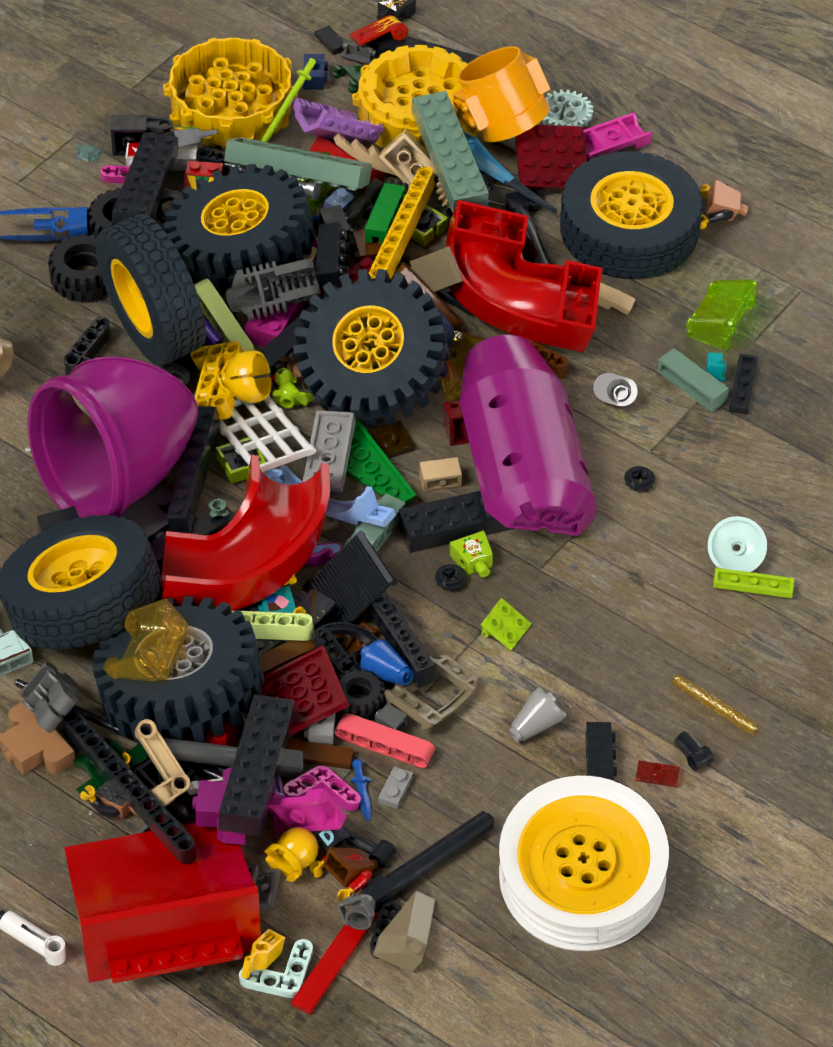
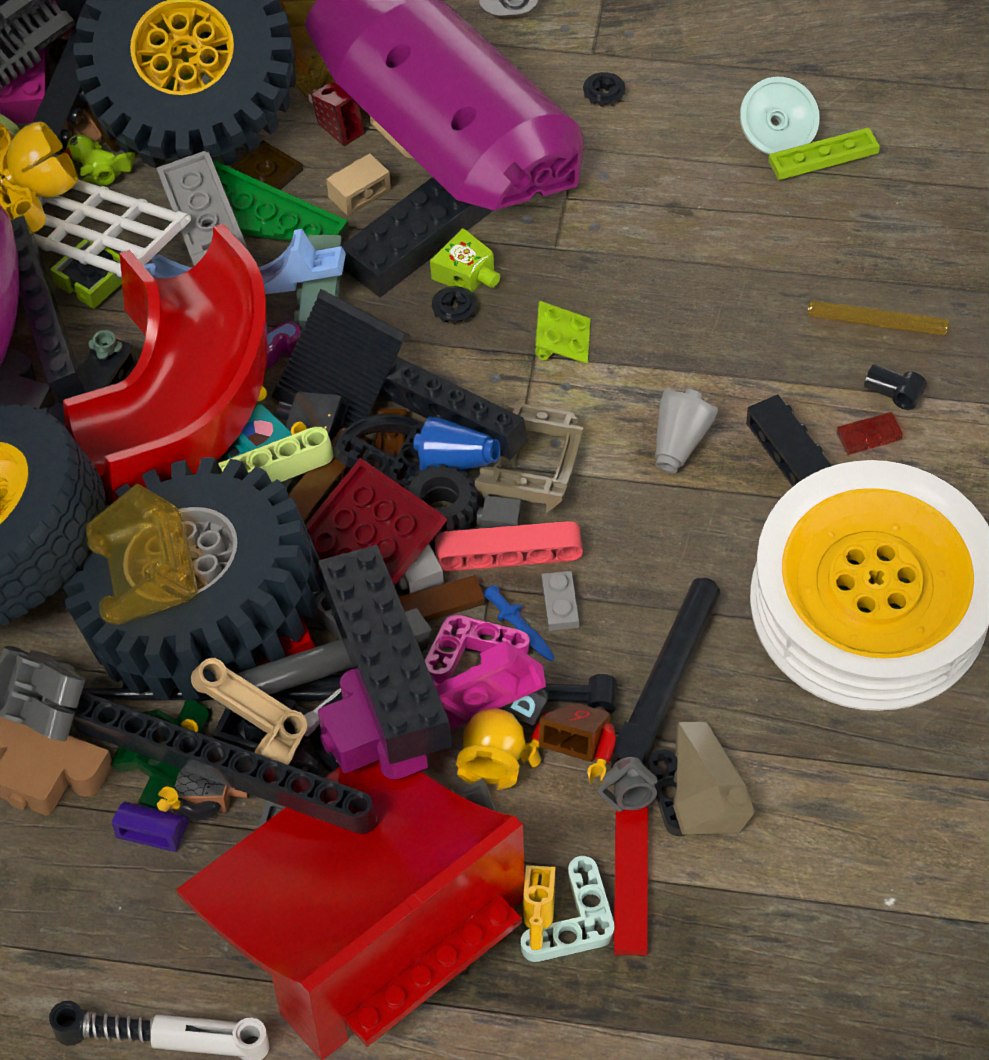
camera: 25 degrees left, 5 degrees up
(72, 805) = (149, 826): none -> dark purple brick

